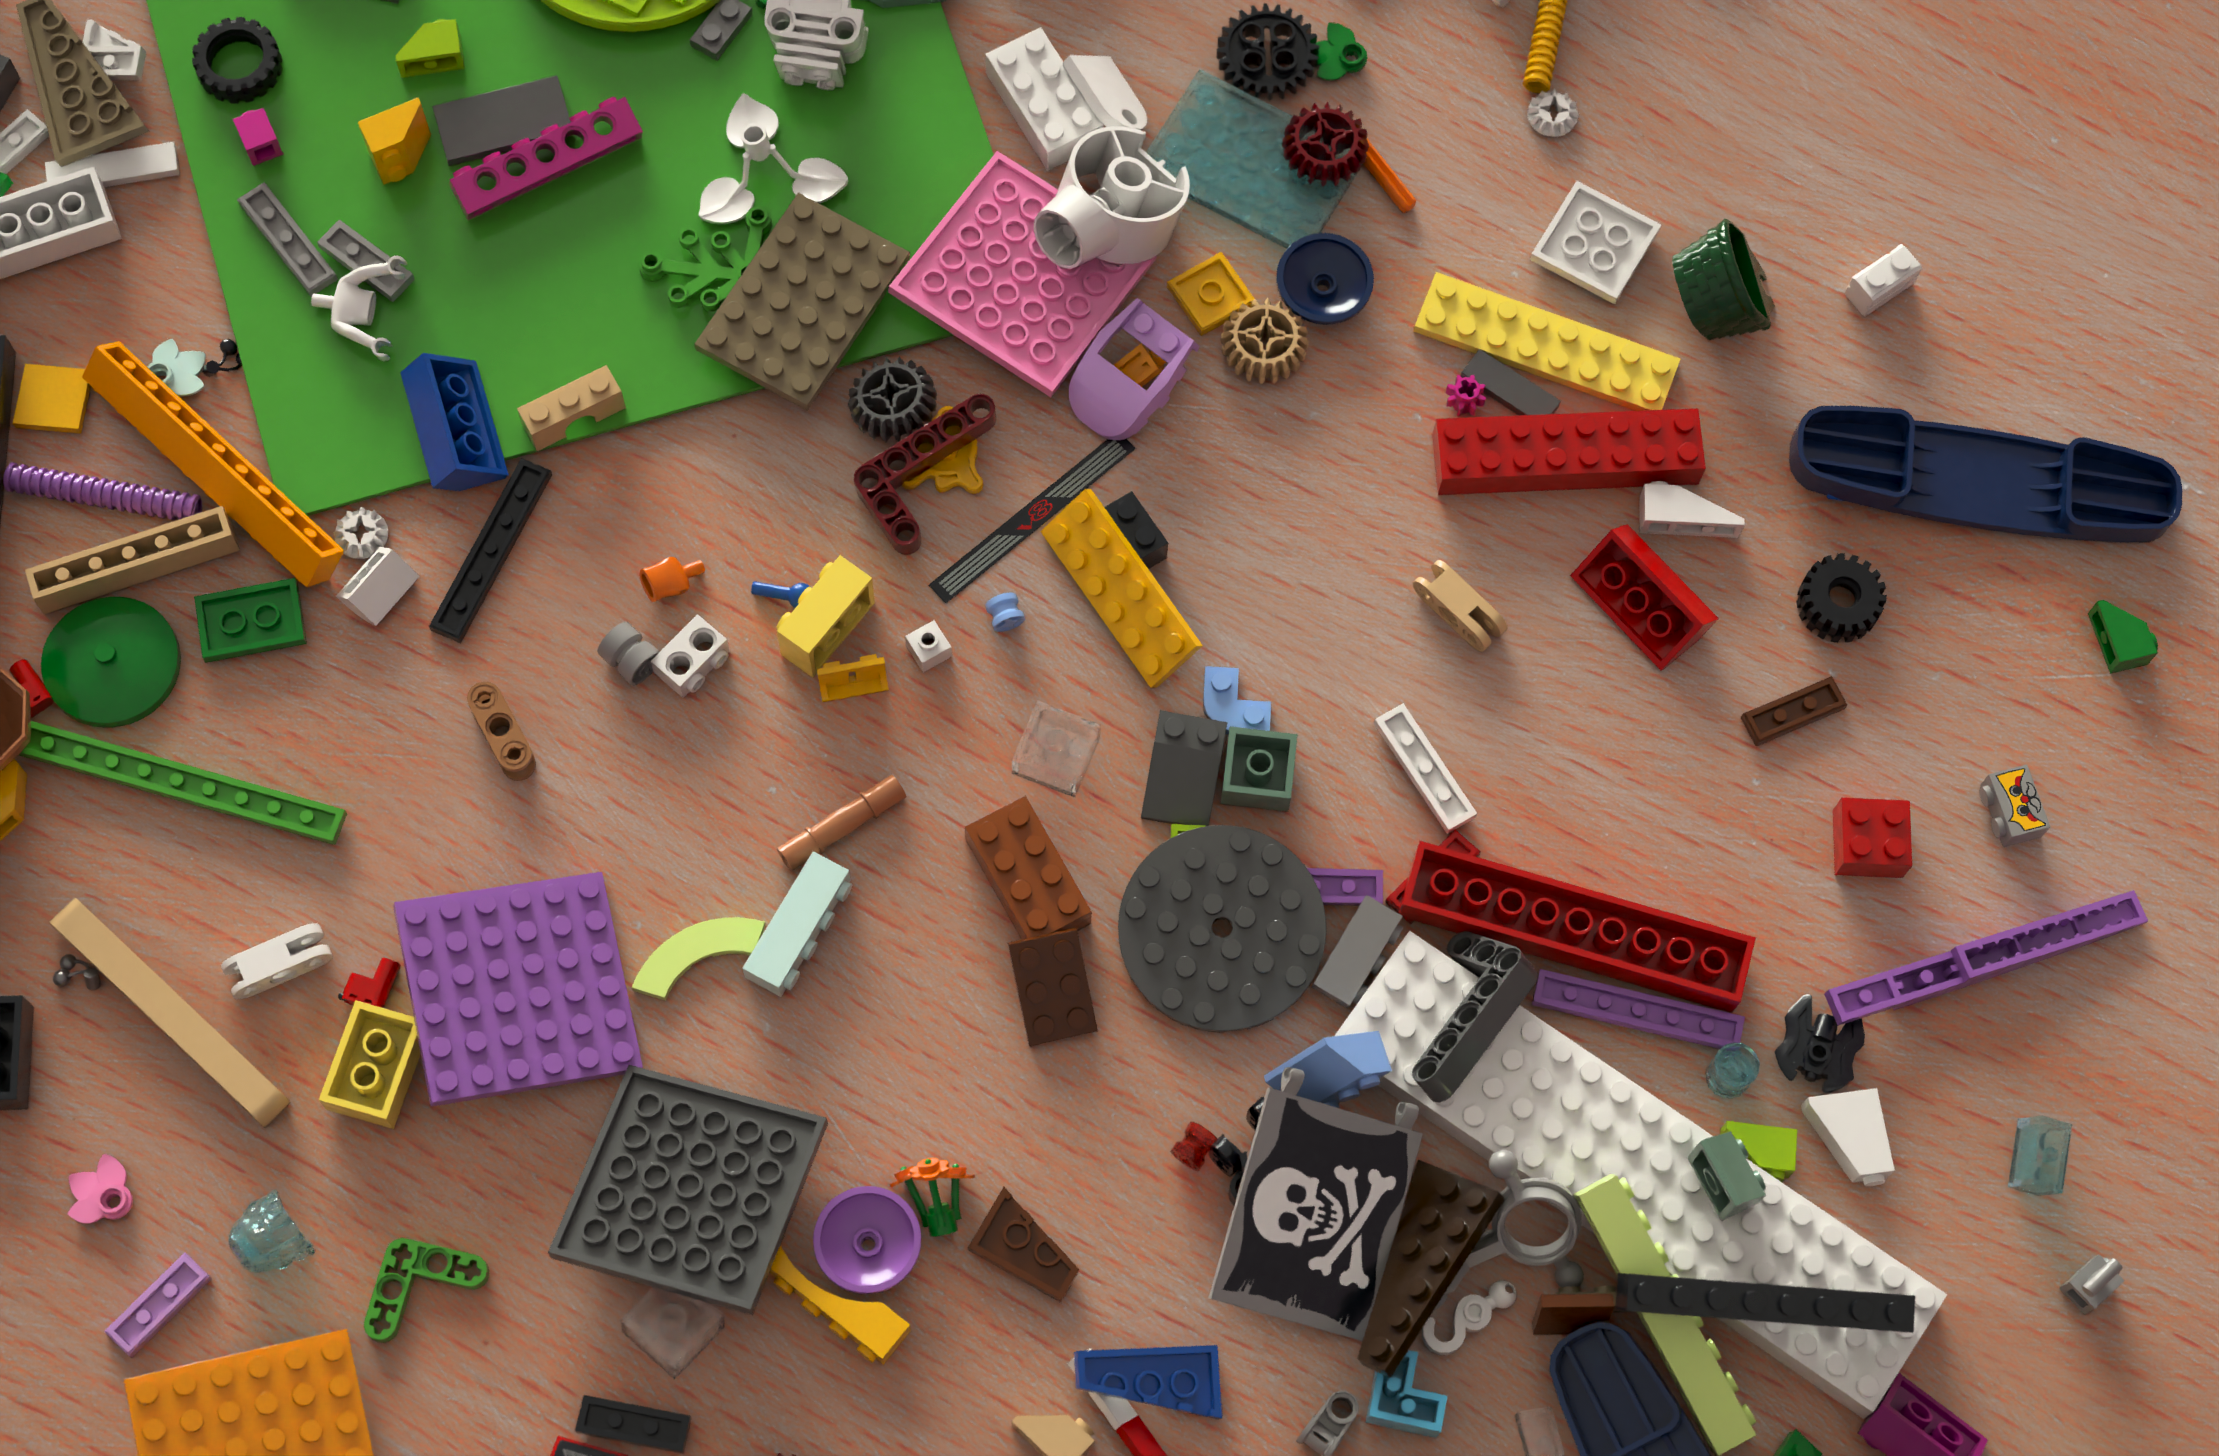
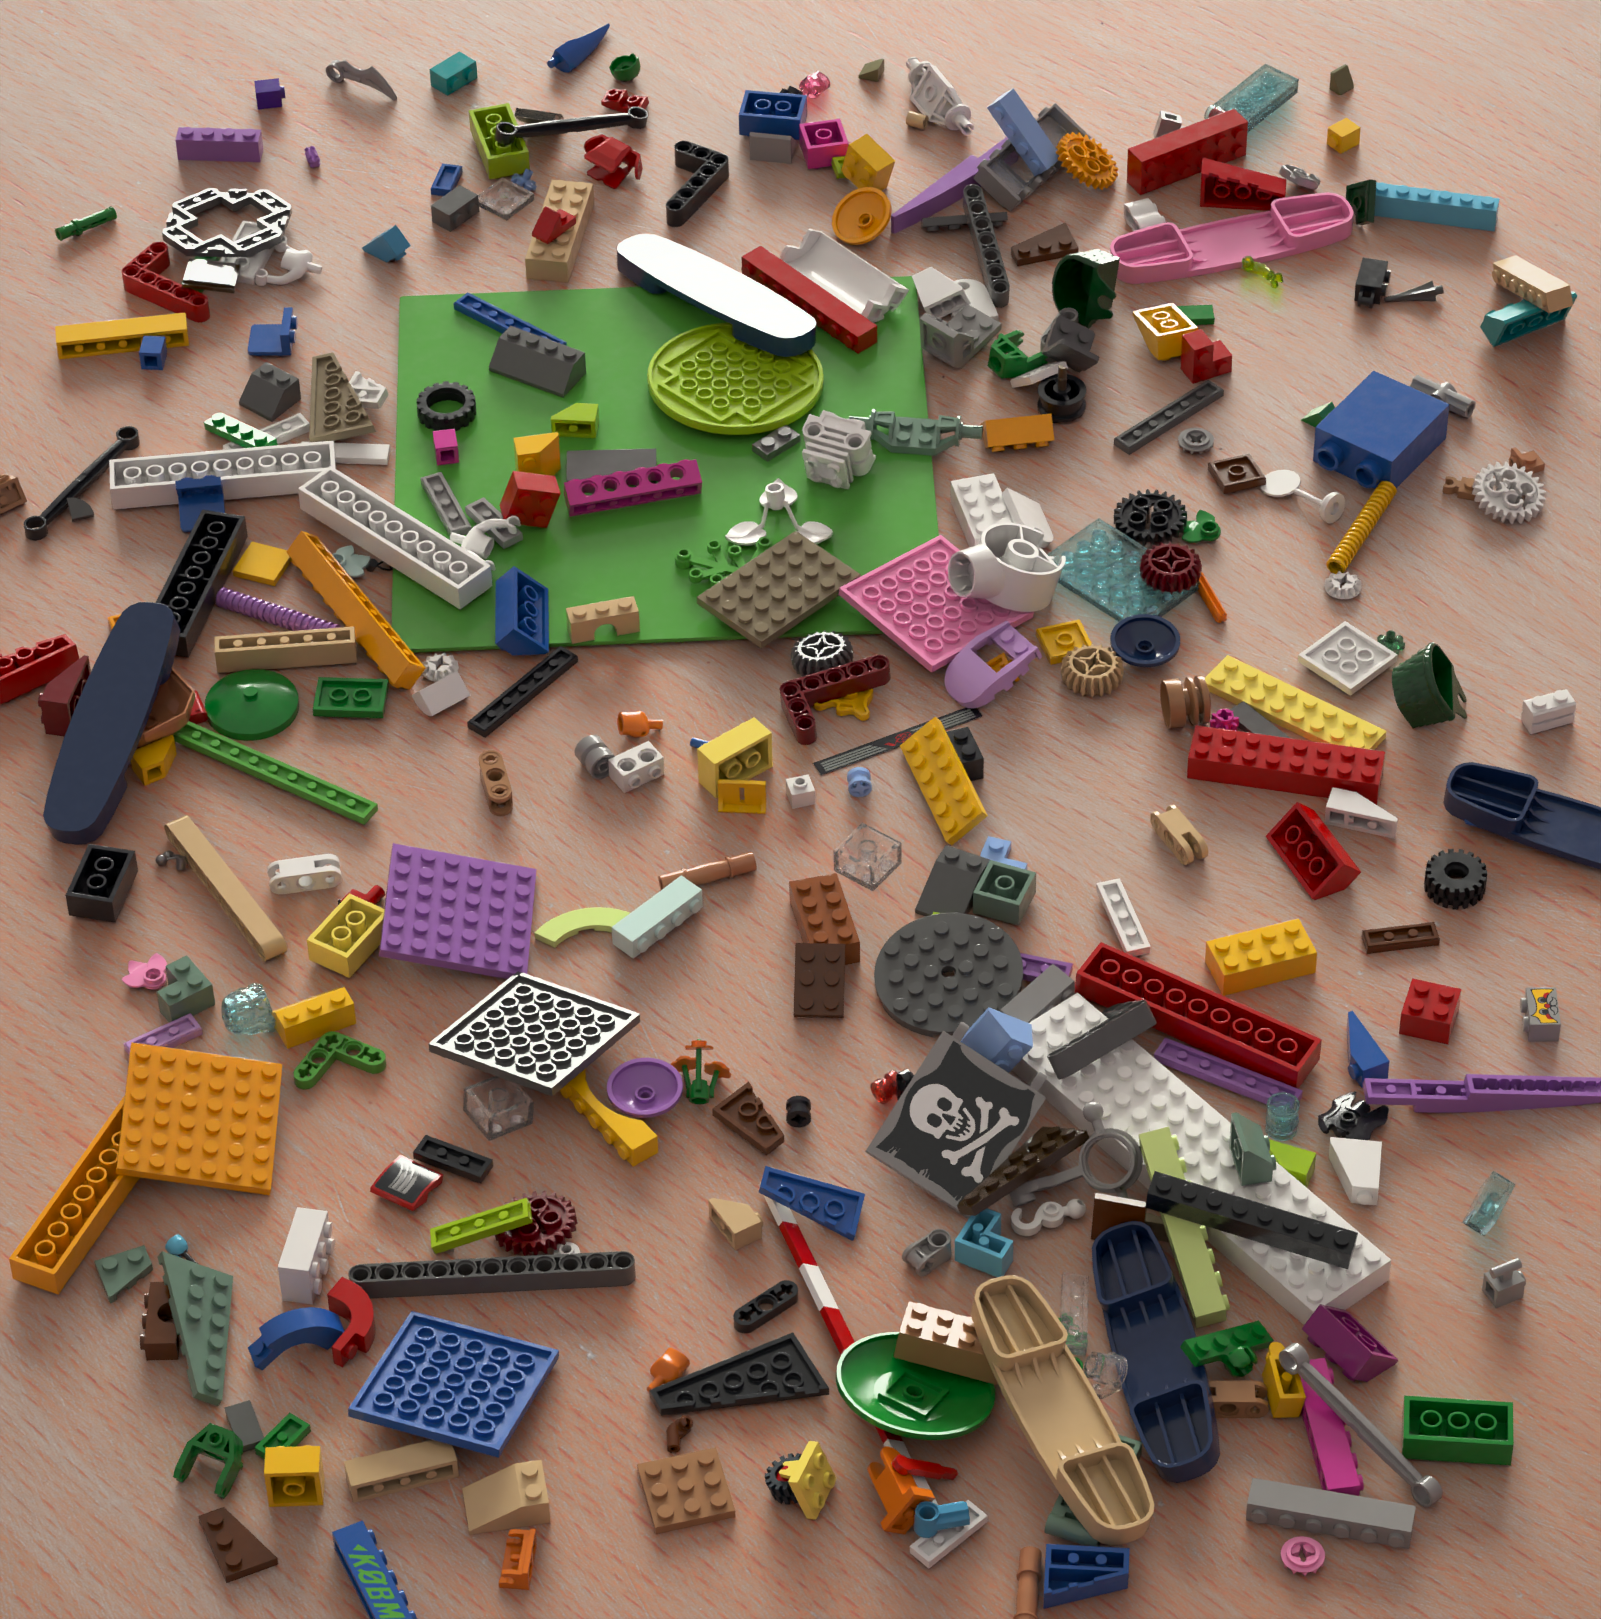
camera: 20 degrees right, 25 degrees down
(174, 1224) = (186, 990): none -> sand green brick
(233, 323) = (395, 537): none -> white brick
(360, 1213) = (314, 1017): none -> yellow slope
(409, 220) = (530, 498): none -> red brick
(1085, 1220) = (798, 1111): none -> black wheel
(1409, 377) = (1187, 701): none -> medium nougat wheel
(1627, 797) = (1260, 957): none -> yellow brick
(1642, 199) = (1391, 641): none -> clear green plant
(1805, 933) = (1364, 1054): none -> blue slope

